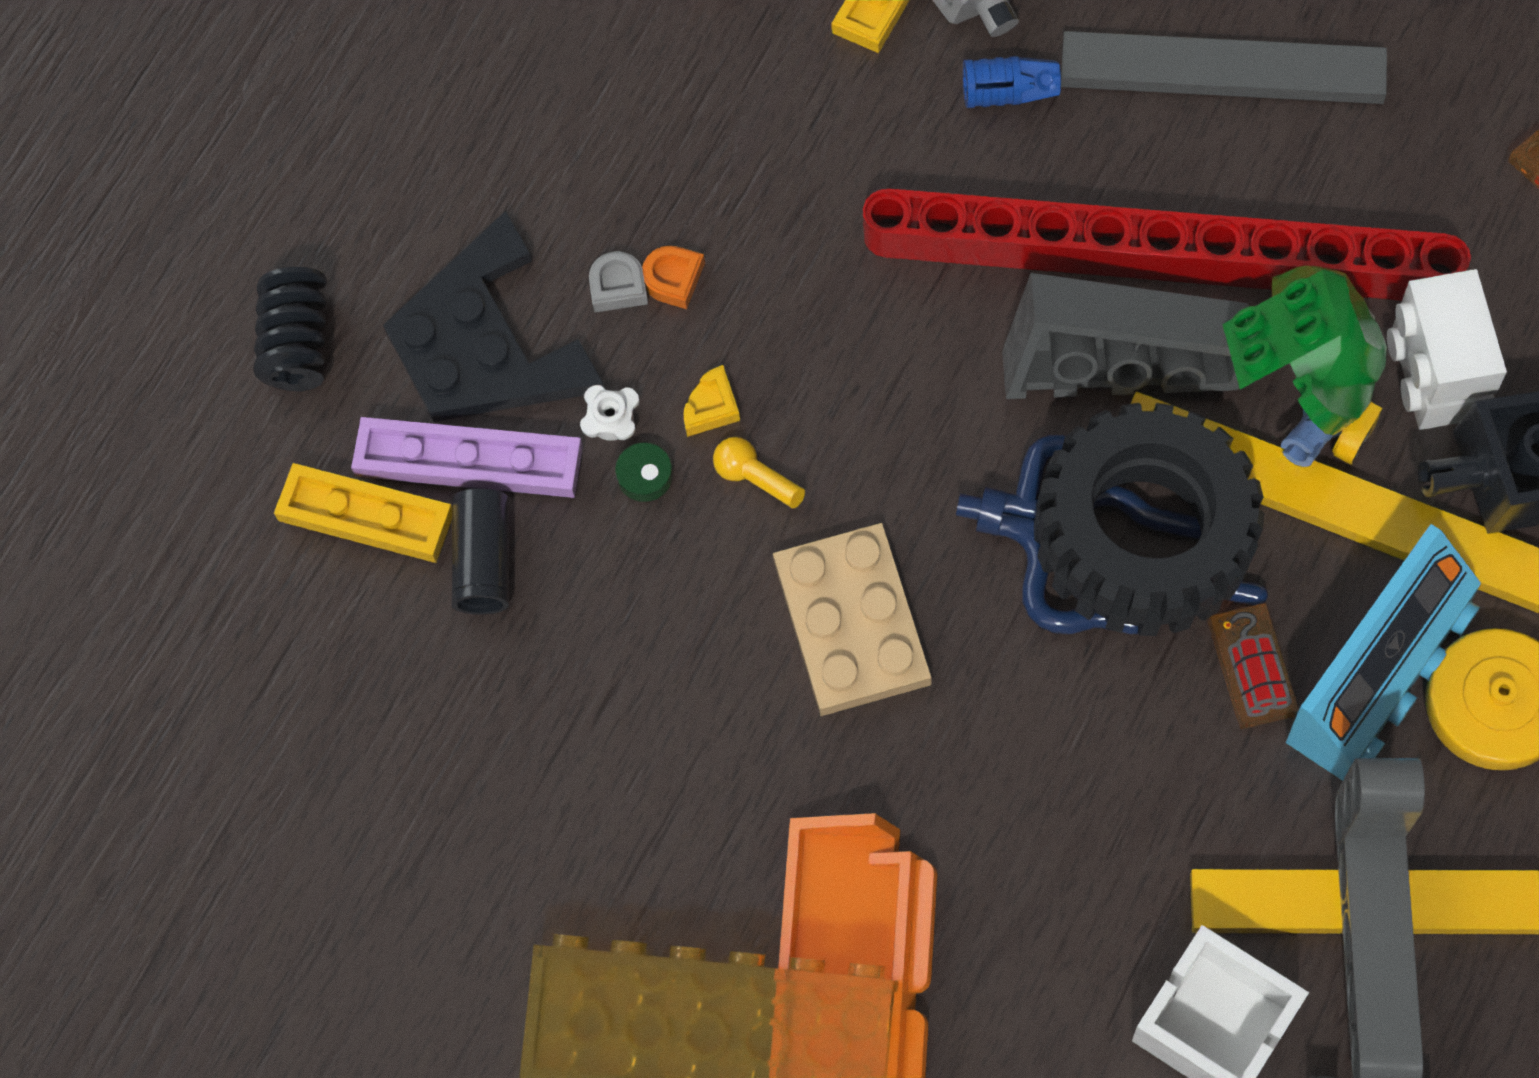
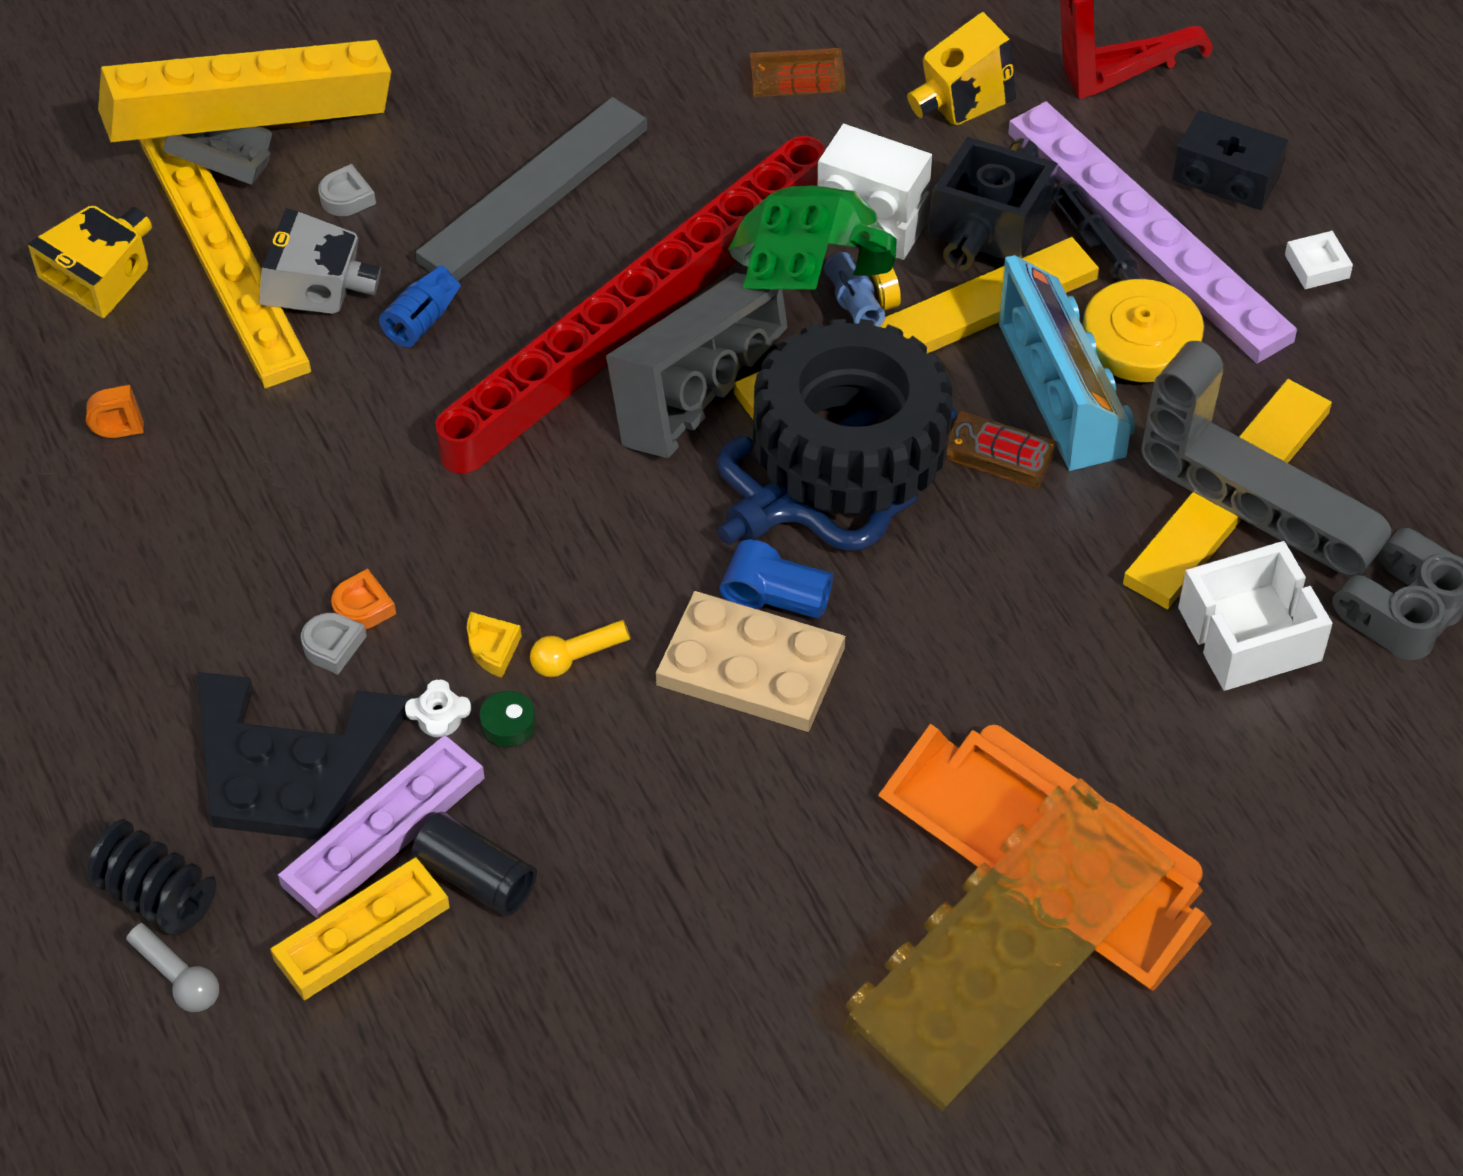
camera: 60 degrees left, 15 degrees down
(237, 434) = (193, 987): none -> light grey bar
(938, 567) = (762, 577): none -> blue piece

